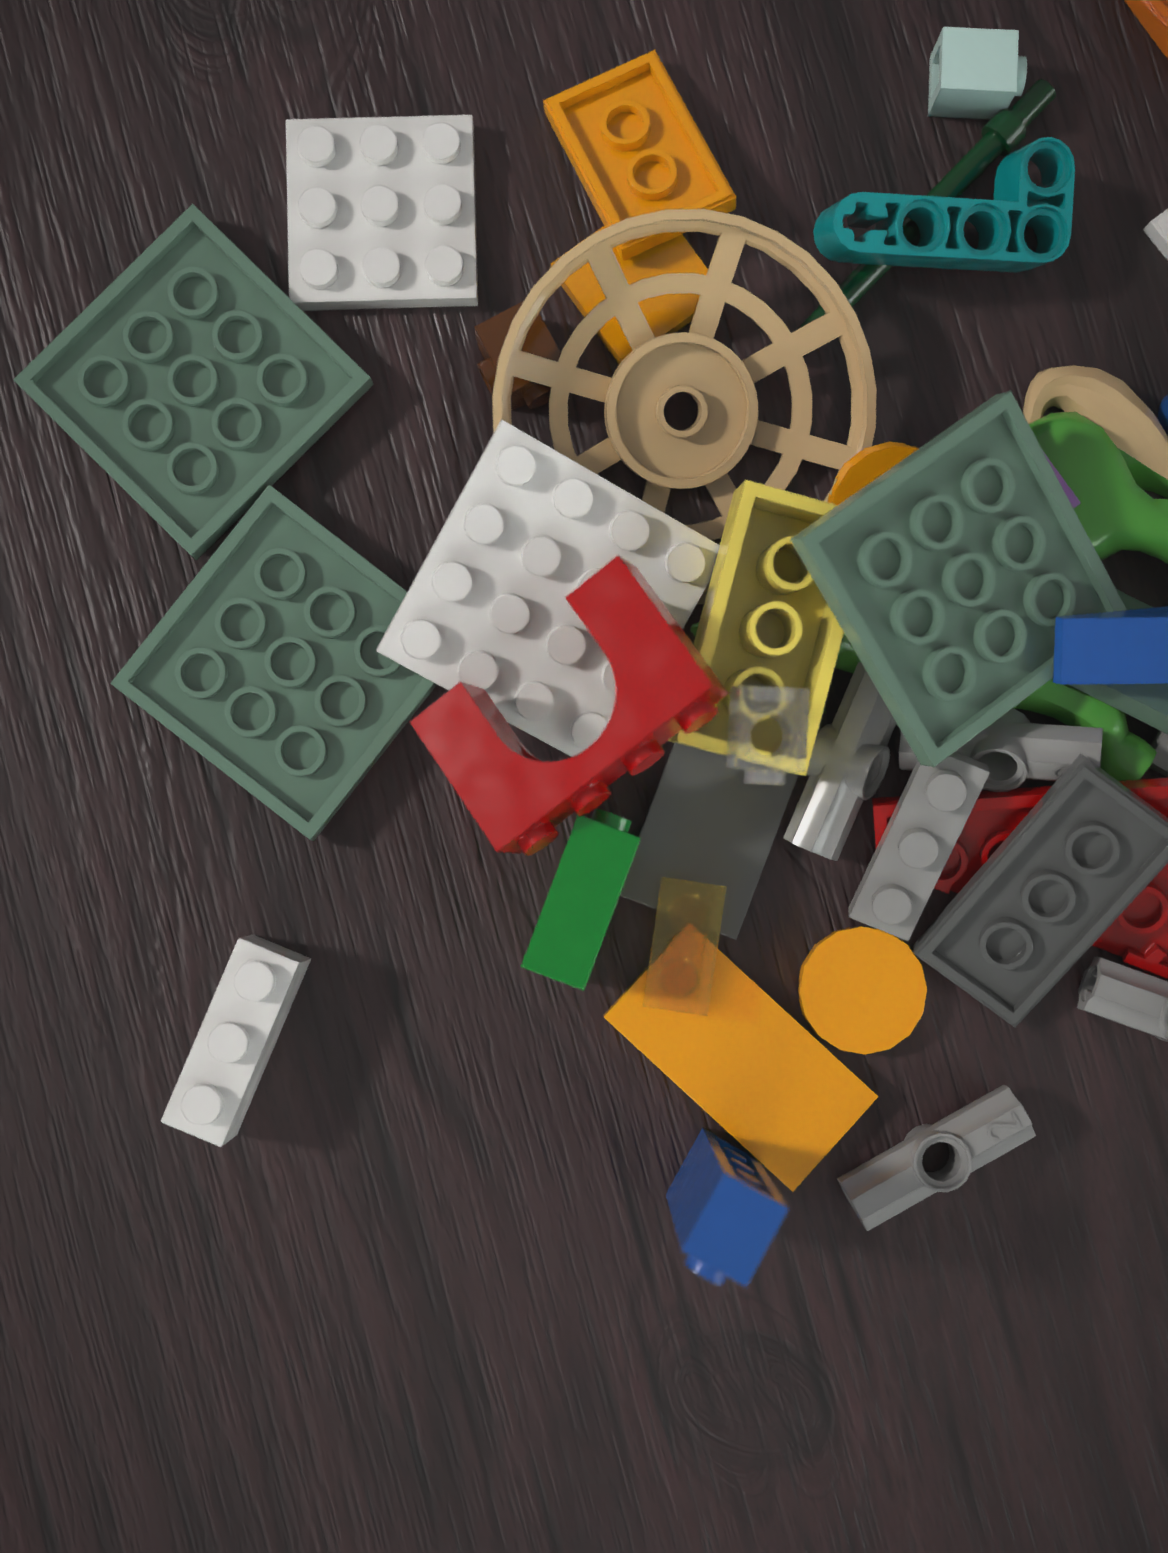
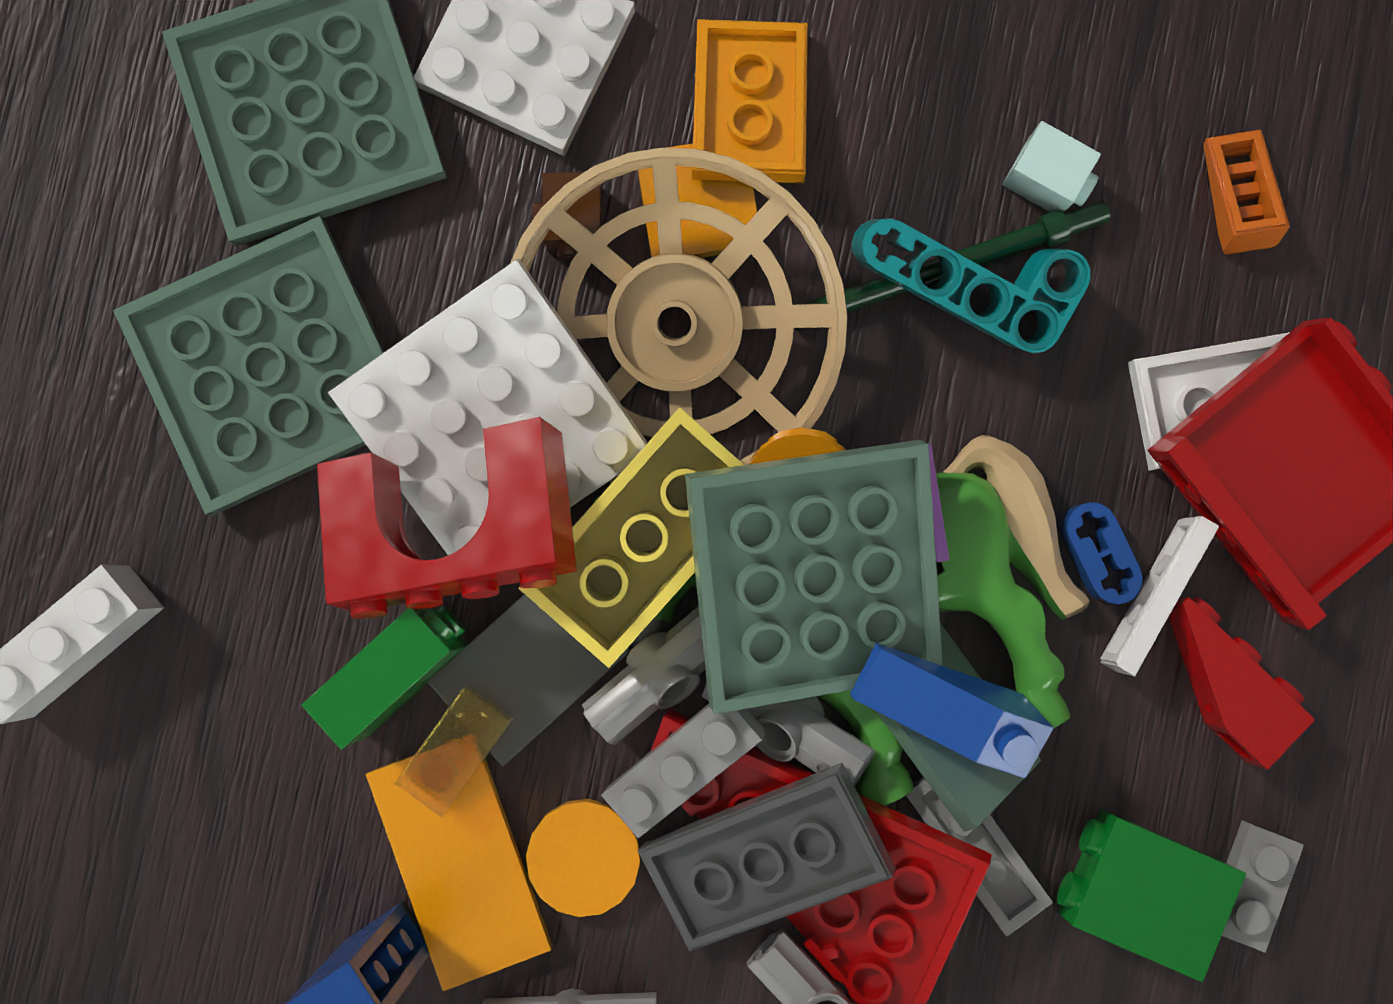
camera: 25 degrees right, 0 degrees up
(791, 712) = (595, 592): clear brick -> none

